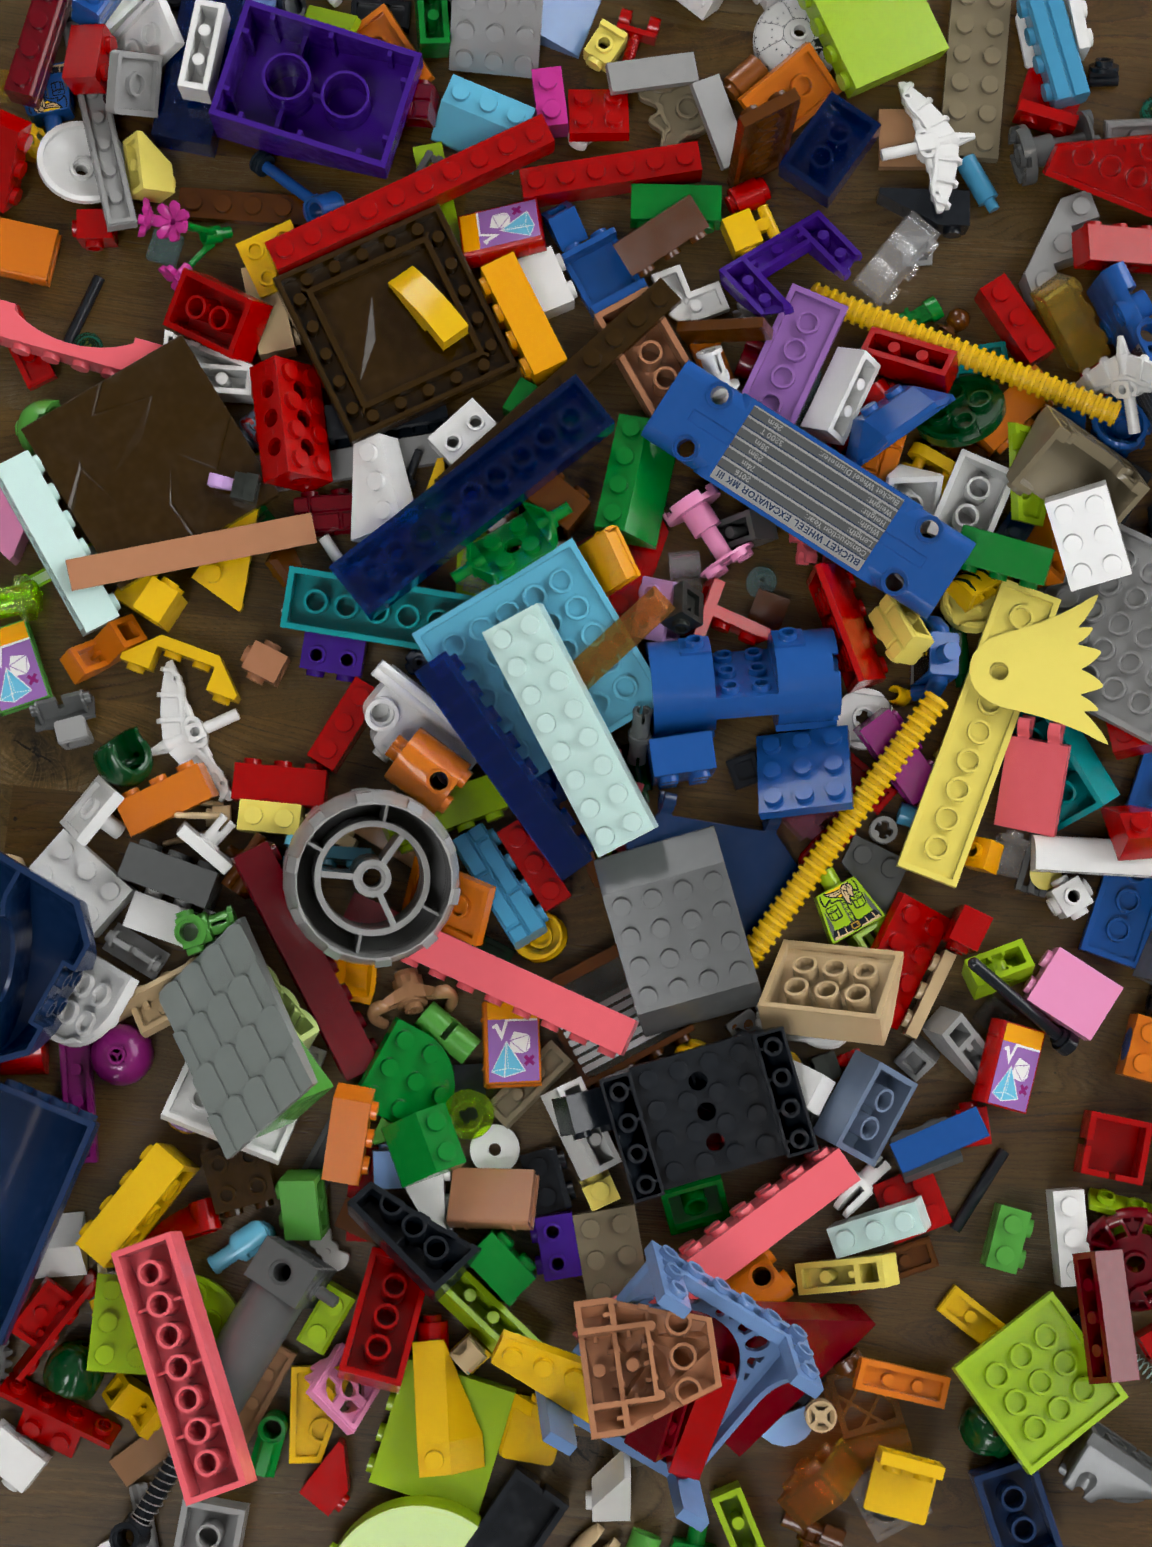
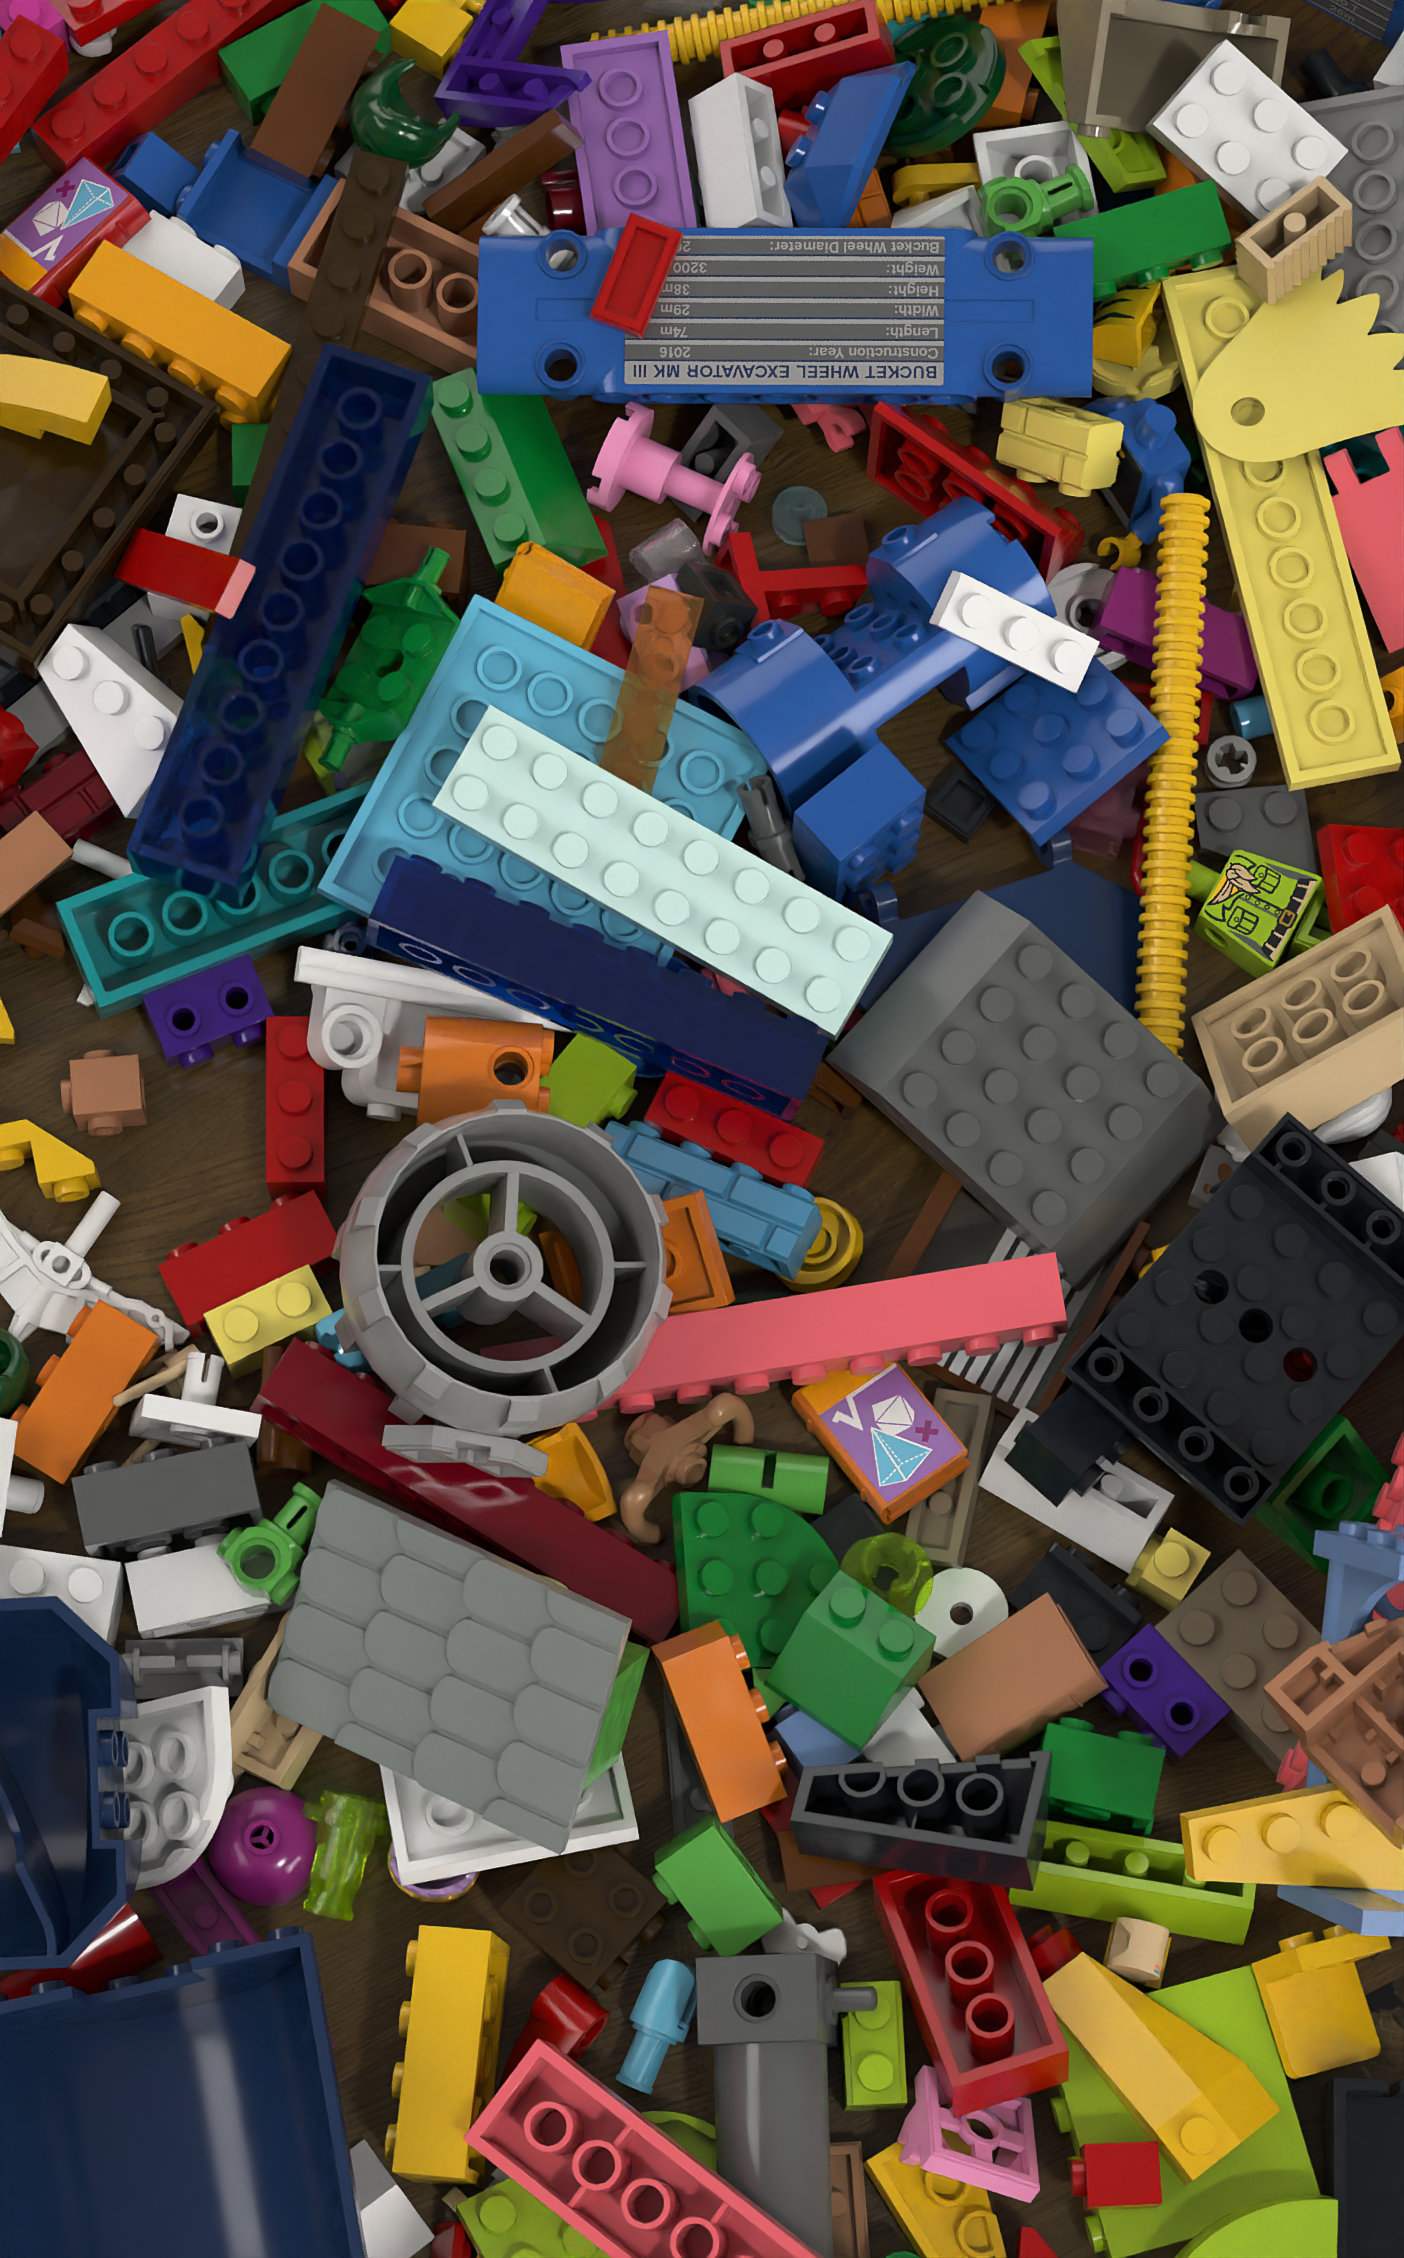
camera: 35 degrees left, 10 degrees down
(159, 1071) = (344, 1840): none -> clear neon green piece
(296, 935) = (448, 1445): none -> light grey tile
(391, 1450) = (1117, 2176): none -> red brick
(443, 444) = (184, 572): none -> red tile
(687, 273) = (389, 127): none -> dark green piece
(746, 428) = (636, 276): none -> red tile
(811, 714) = (1014, 631): none -> white plate
(966, 505) = (1033, 203): none -> bright green connector
(1076, 602) = (1294, 240): none -> tan brick

